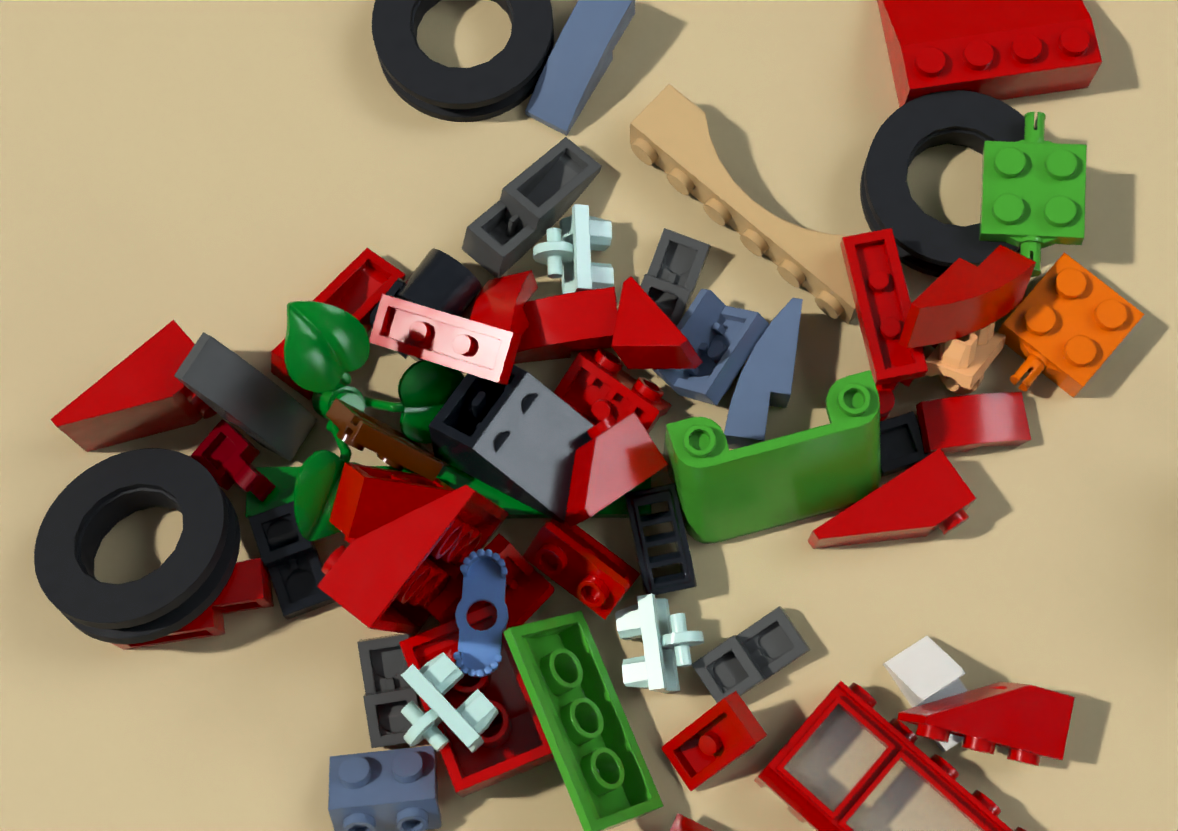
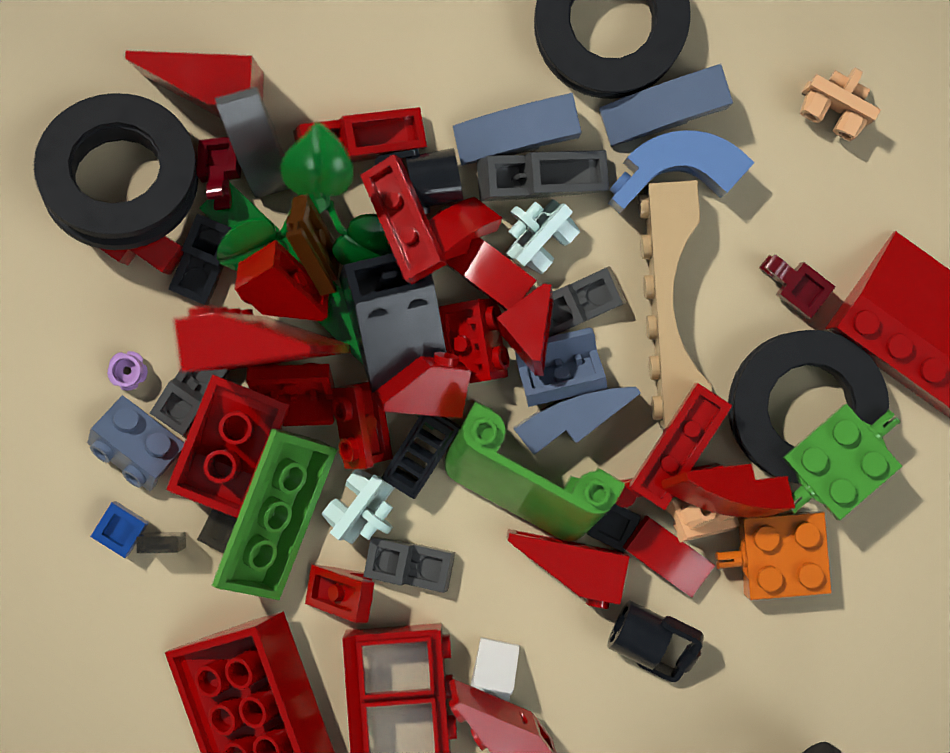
camera: 40 degrees right, 15 degrees up
(299, 729) = (119, 363): none -> lavender plate
(431, 685) = (200, 457): light aqua hips -> none
(472, 183) = (518, 129): none -> sand blue slope
(482, 581) = (252, 424): medium blue piece -> none
(544, 795) = (217, 530): none -> clear smoke tile
(634, 78) = (688, 151): none -> medium blue arch
(845, 92) = (801, 288): none -> dark red plate
(1031, 509) = (646, 636): none -> black piece

